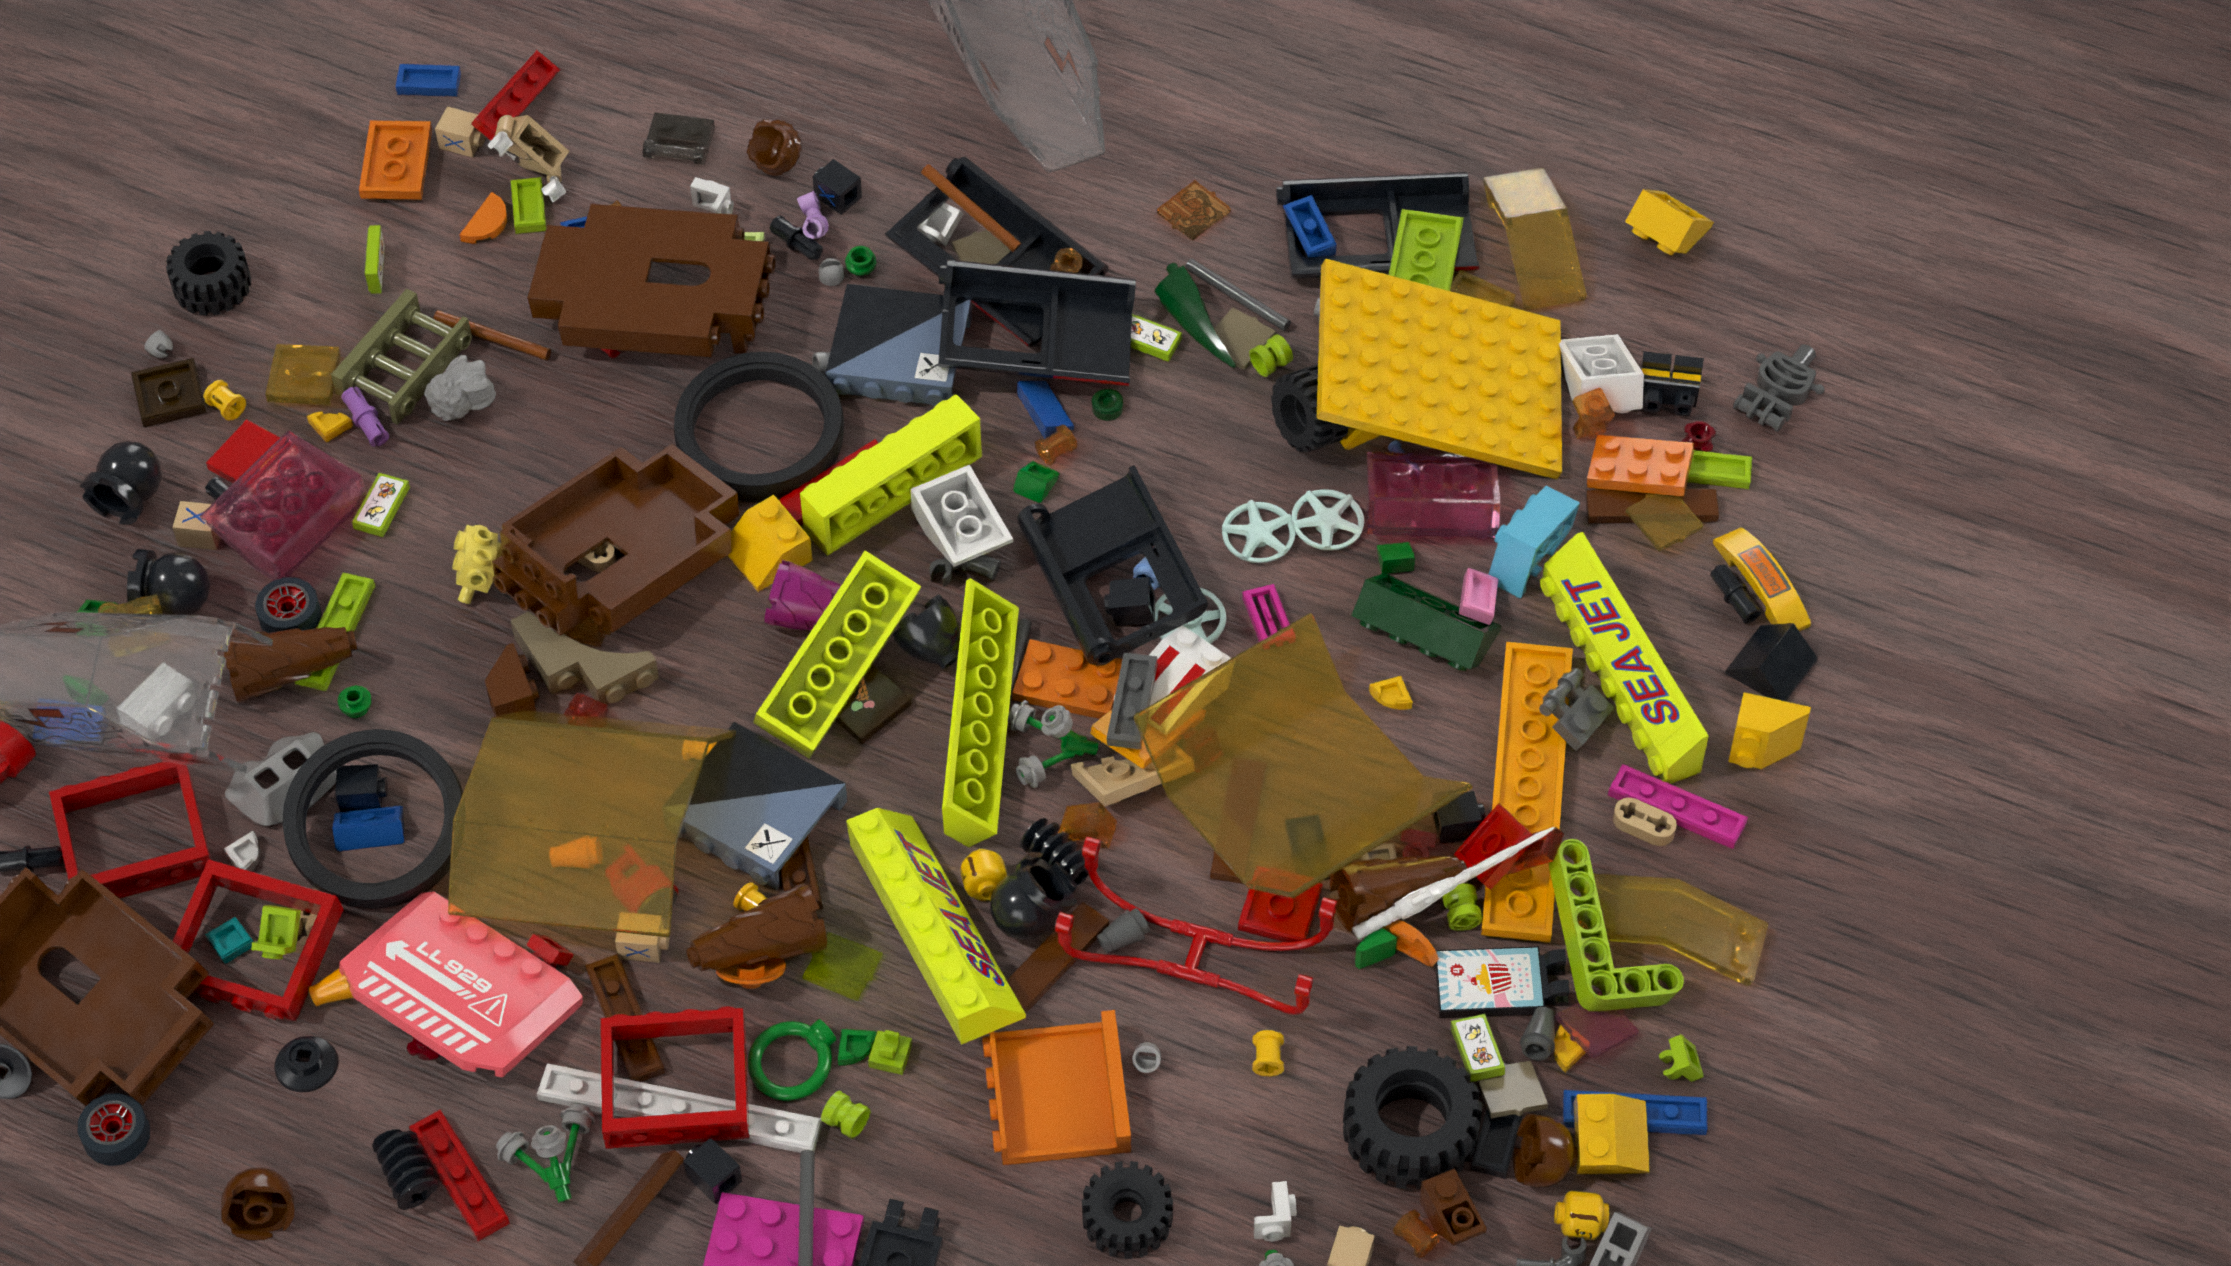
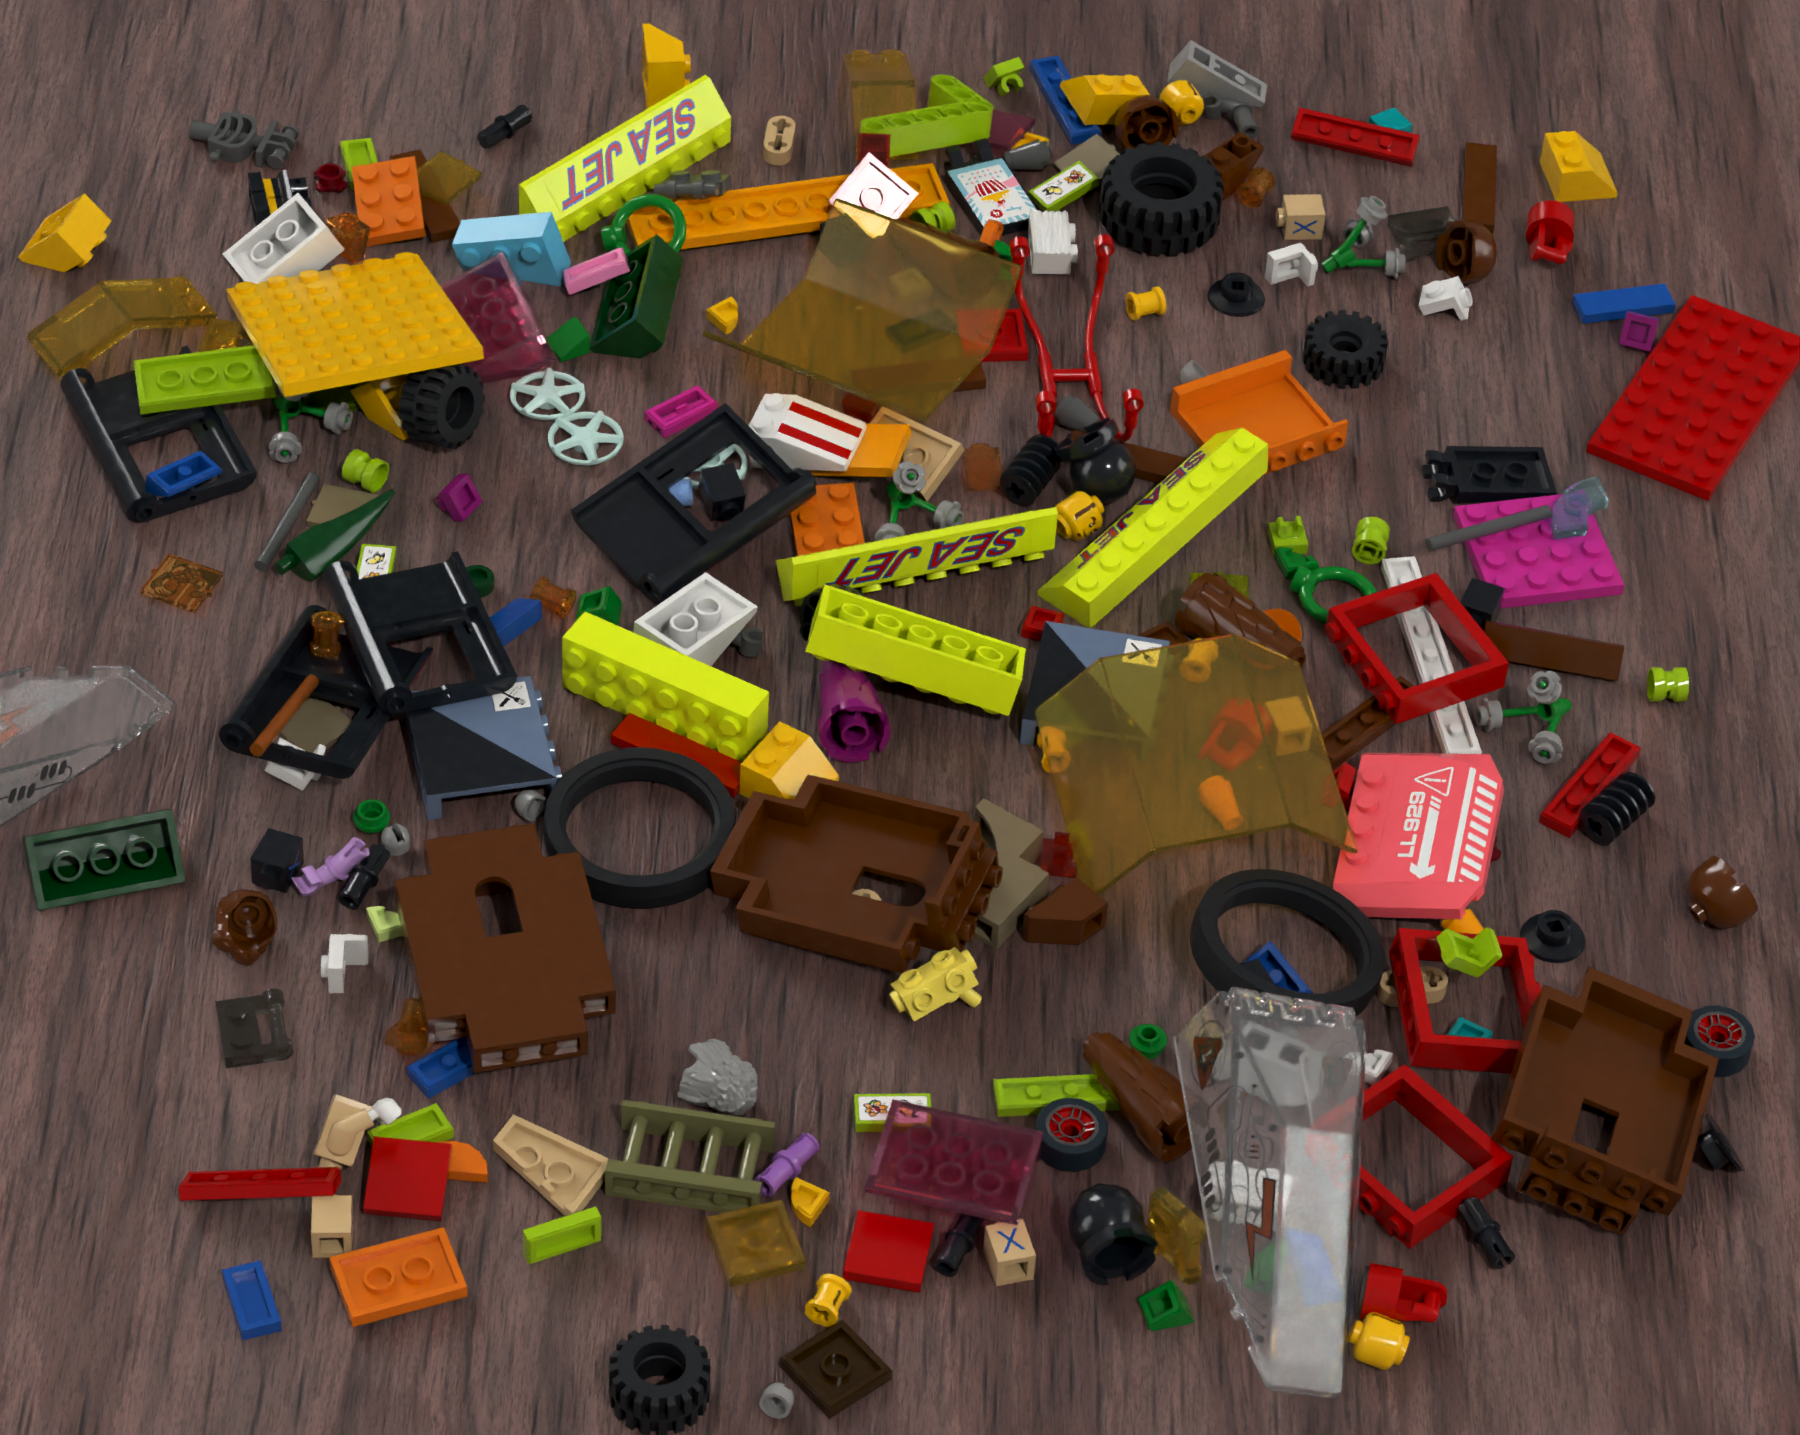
camera: 115 degrees left, 10 degrees down
(123, 481) = (990, 1327): black tile -> none
(448, 276) = (552, 1164): none -> tan wing
(479, 185) = (407, 1178): none -> red tile
(497, 336) = (615, 1098): dark orange bar -> none
(866, 799) = (1036, 619): none -> red tile
(894, 84) = (103, 859): none -> dark green slope
(1131, 697) = (857, 435): dark grey plate -> none
(1208, 412) = (459, 497): none -> magenta tile
(1257, 1168) = (1236, 295): none -> black piece
(1390, 1000) = (1050, 242): none -> white brick
(1426, 896) = (943, 208): white sword -> none
(1528, 630) = (615, 236): none -> green piece
(1687, 808) = (750, 127): dark pink tile -> none
(1764, 576) = (474, 110): yellow slope -> none
(1773, 661) = (567, 97): black slope -> none

